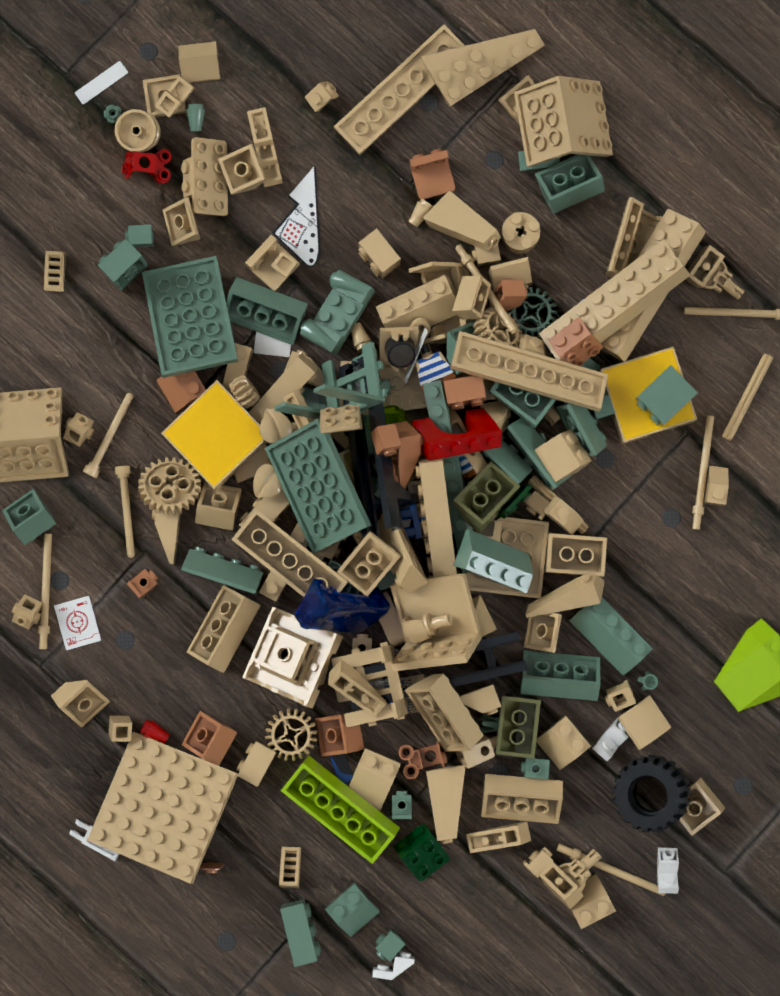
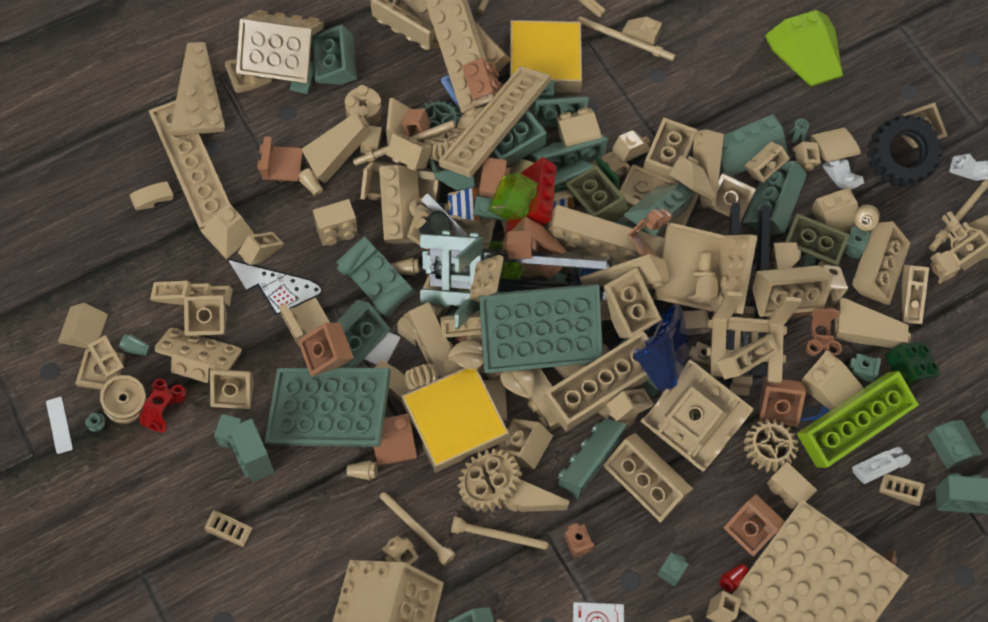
camera: 75 degrees left, 20 degrees down
(143, 675) = (673, 568): none -> sand green brick
(146, 371) = (363, 470): none -> tan cone
(237, 294) = (325, 348): none -> nougat slope
(277, 591) = (629, 404): none -> tan slope
(284, 264) = (311, 305): tan panel -> none
(305, 842) = (880, 465): none -> white hinge
(321, 95) = (165, 231): tan bracket -> none
(333, 192) = (259, 247): none -> tan slope
(338, 155) = (227, 231): none -> tan slope
(353, 66) = (148, 196): none -> tan slope
(433, 558) = (653, 222): none -> nougat piece
(441, 416) = (513, 196): none -> clear neon green brick
(539, 585) = (692, 176): none -> tan slope
(561, 771) = (862, 215): none -> tan head
(594, 656) = (767, 162): none -> tan brick
(665, 396) = (553, 34): sand green brick -> none

